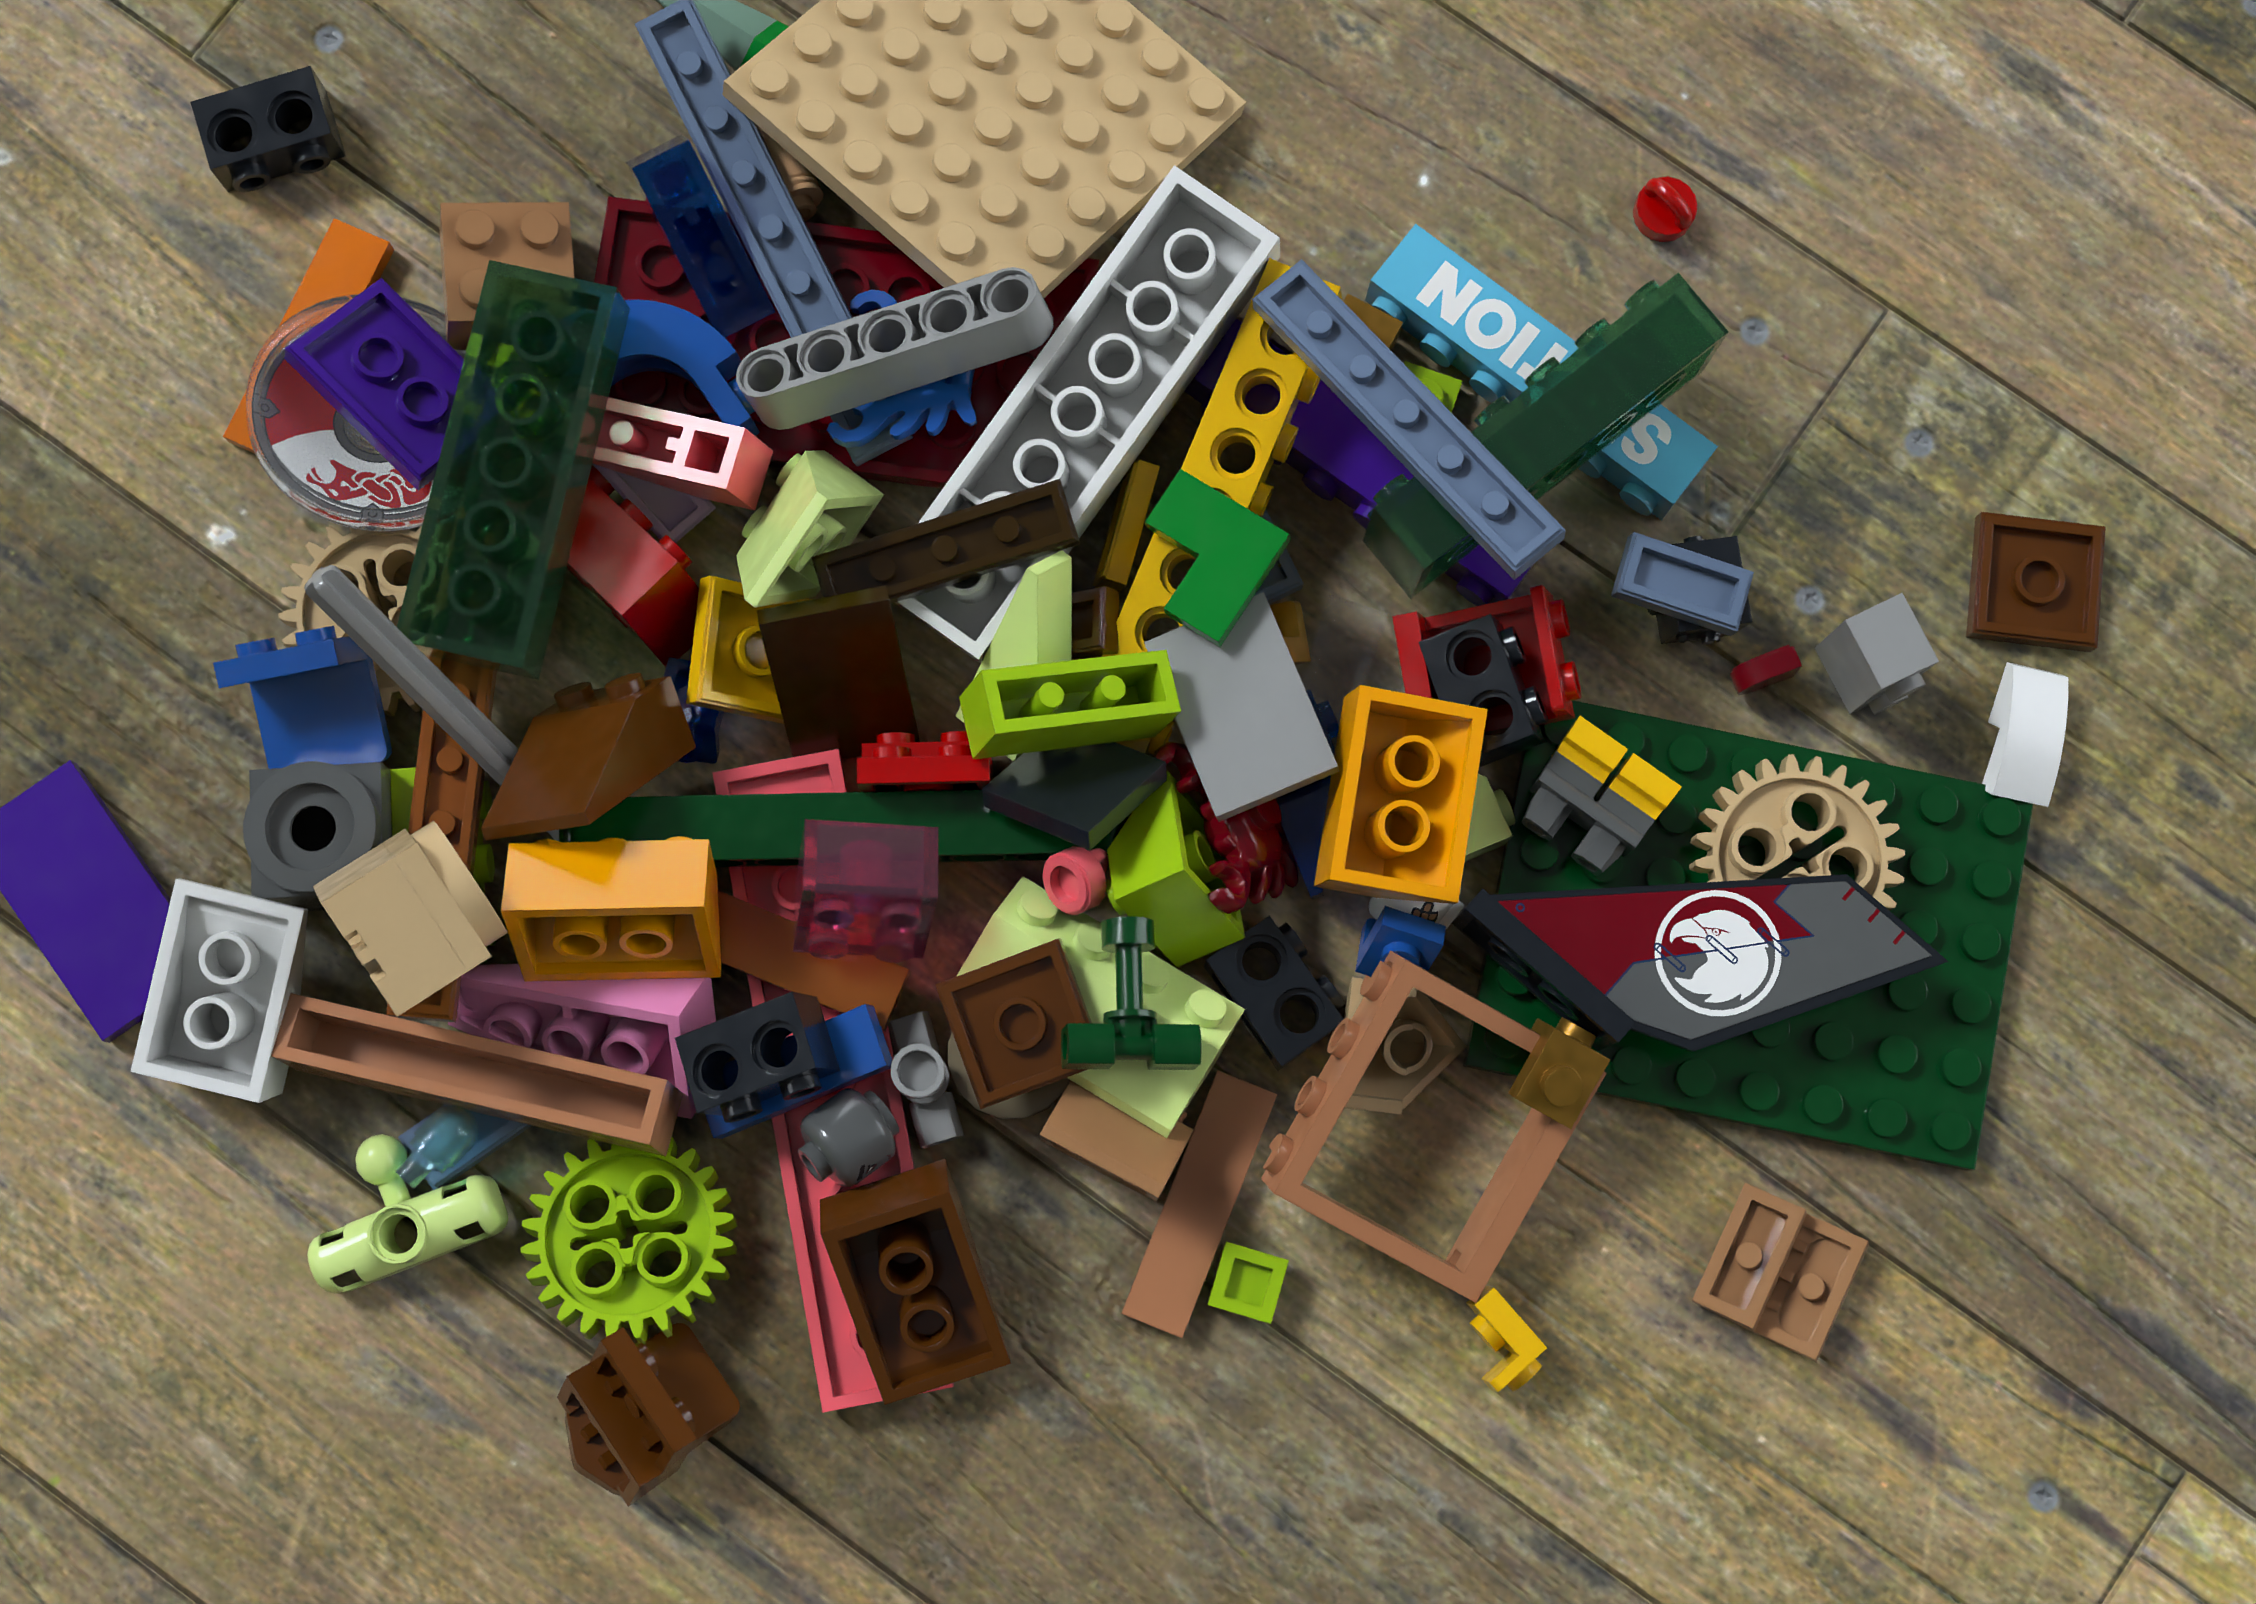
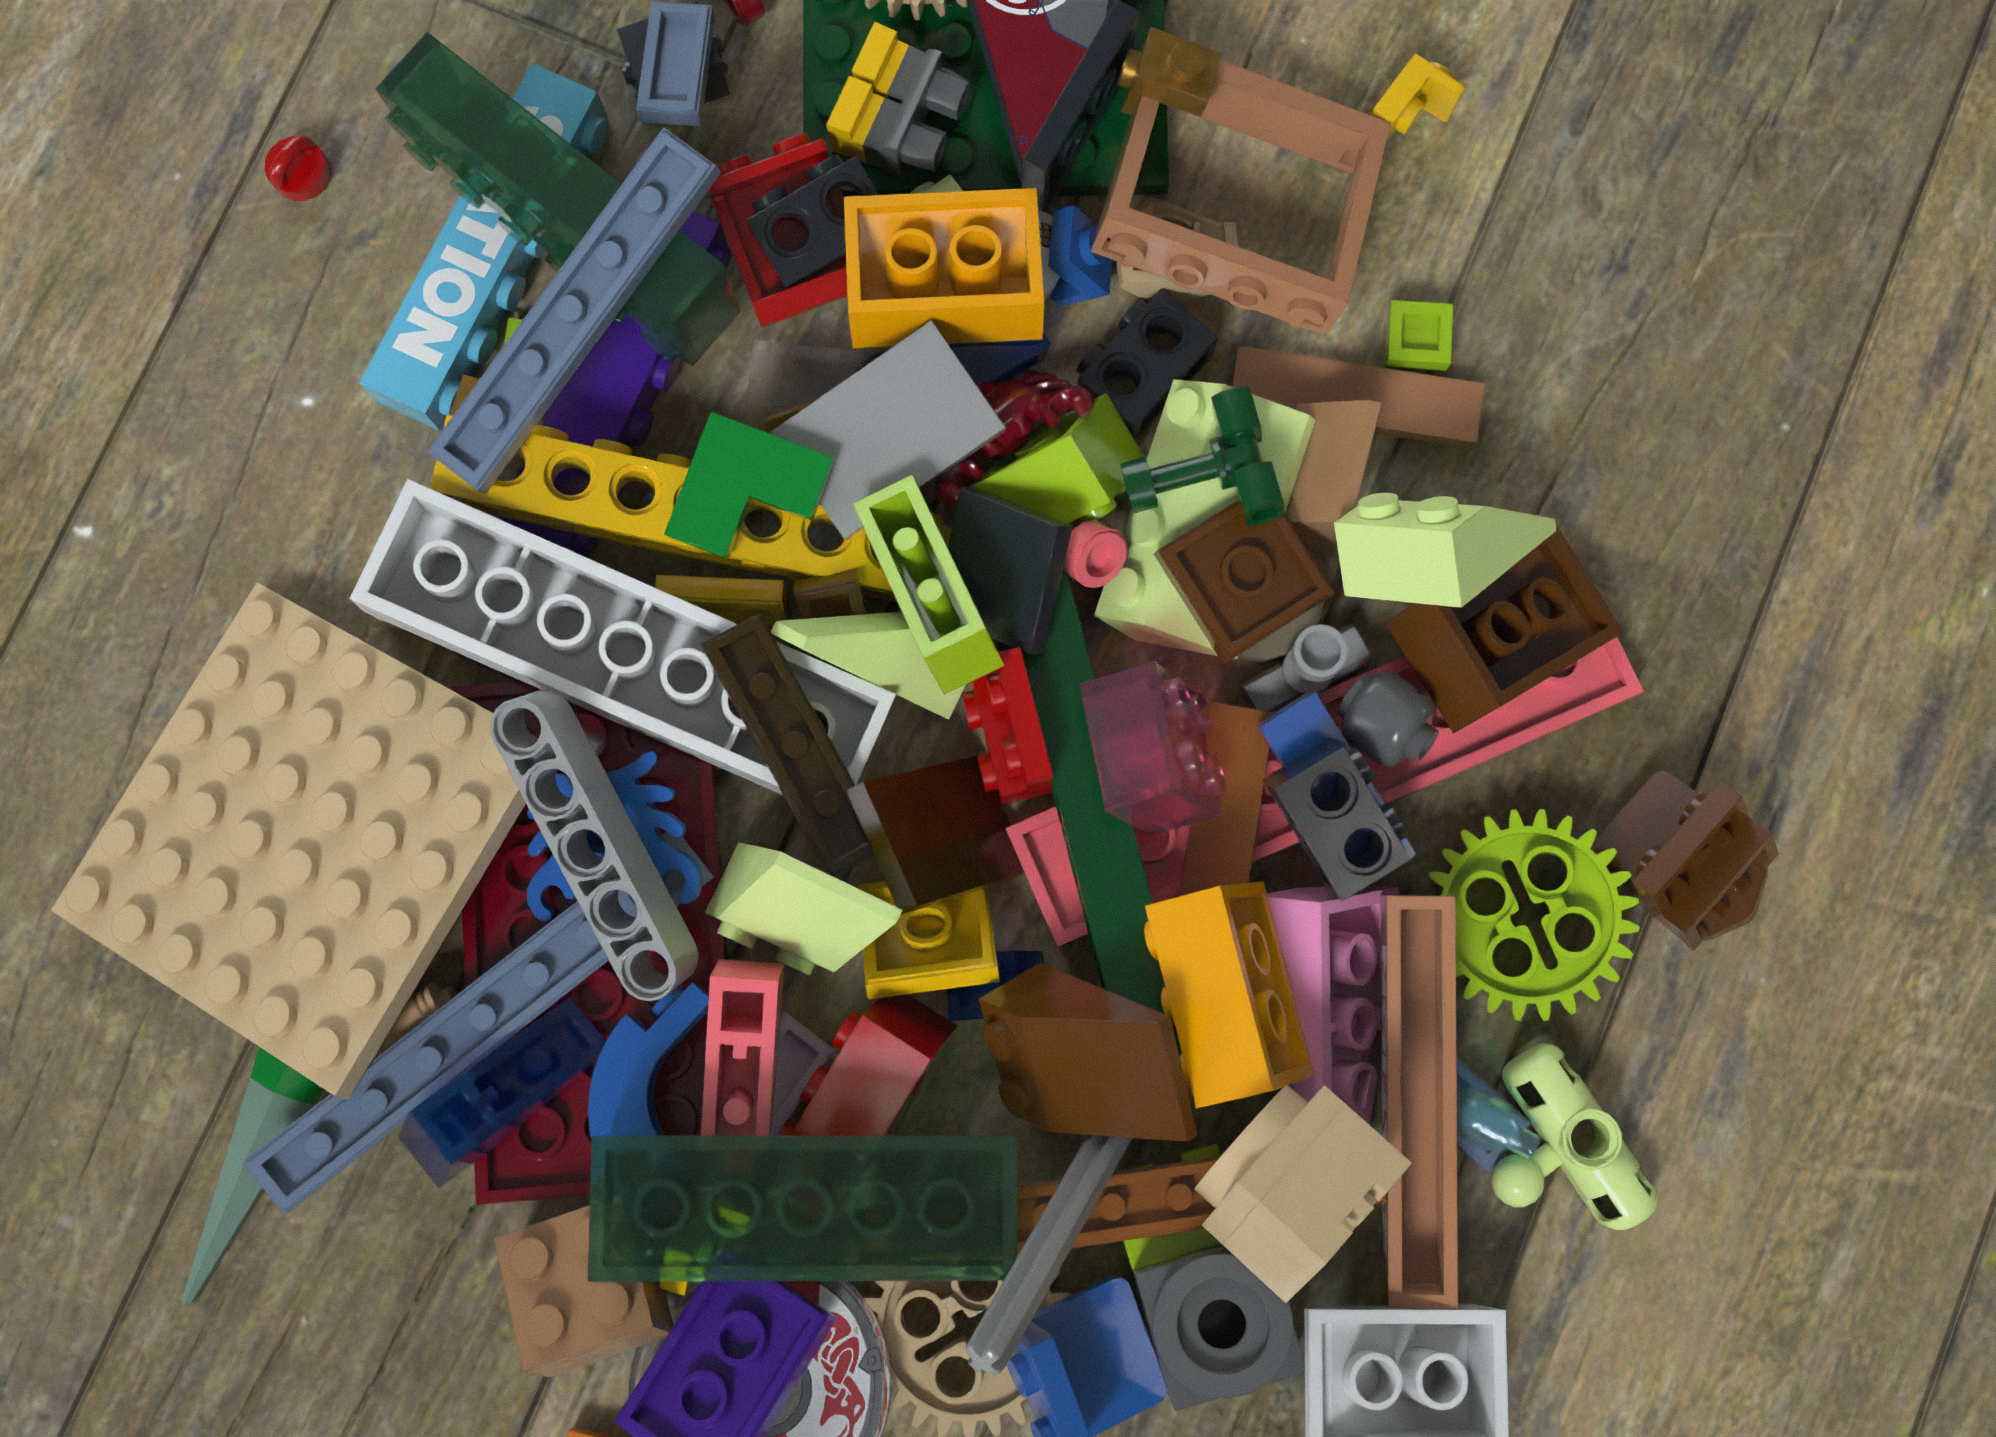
camera: 95 degrees left, 0 degrees up
(1001, 1218) = (1431, 548): none -> yellowish green slope

